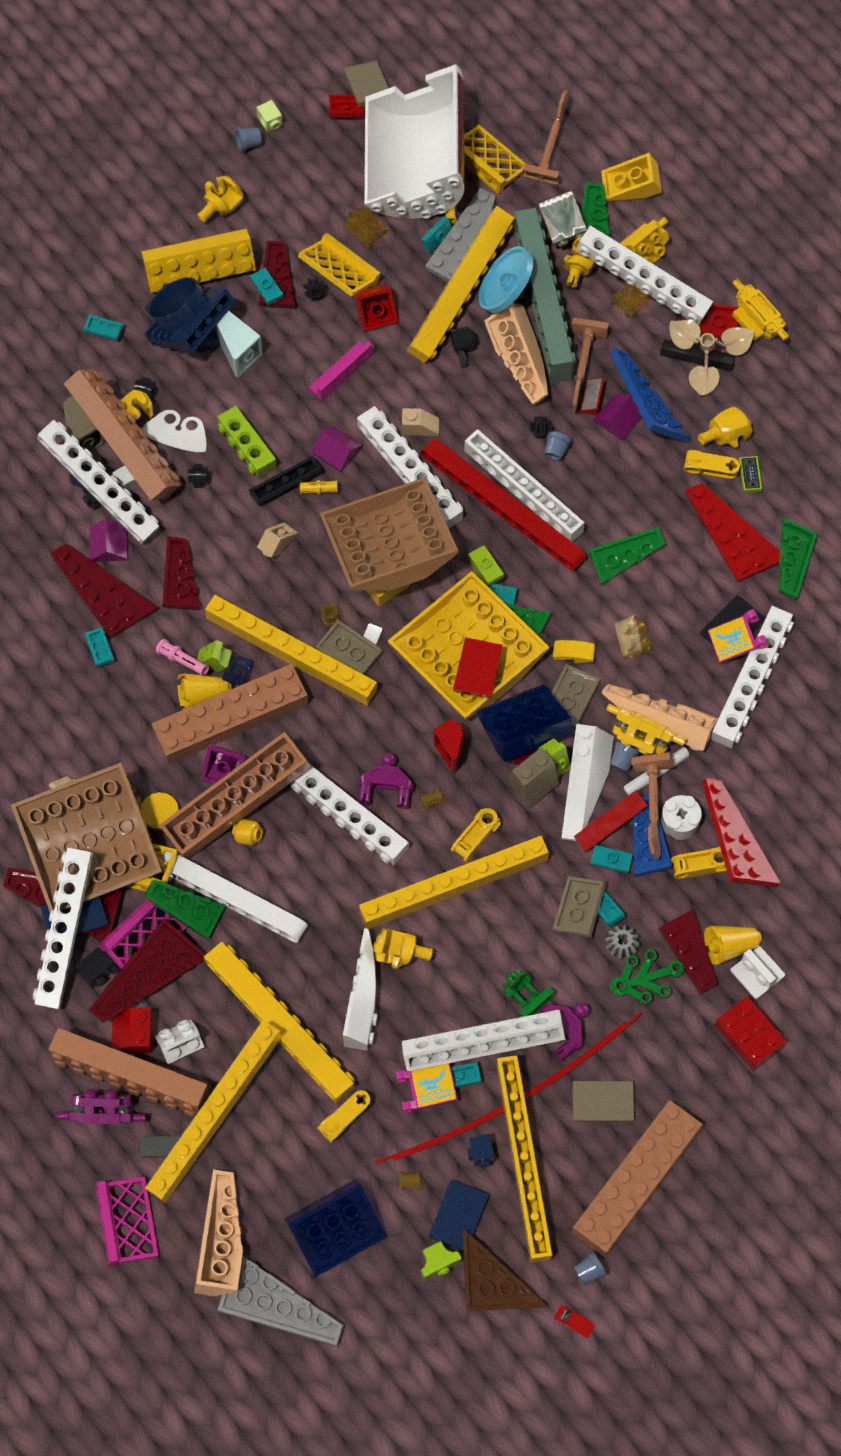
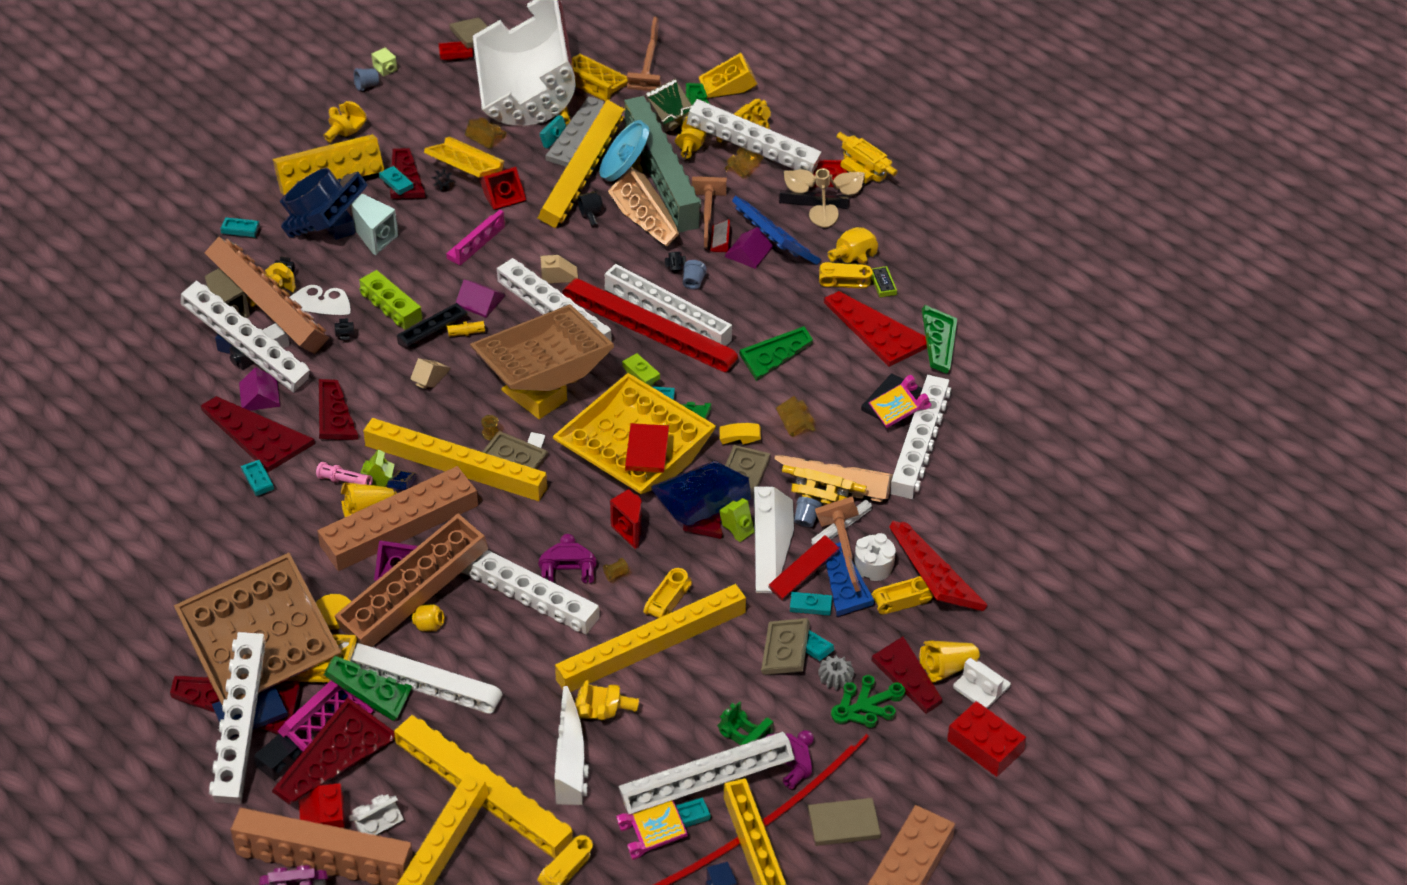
camera: 10 degrees left, 20 degrees down
(534, 778) = (718, 534): dark tan slope -> none

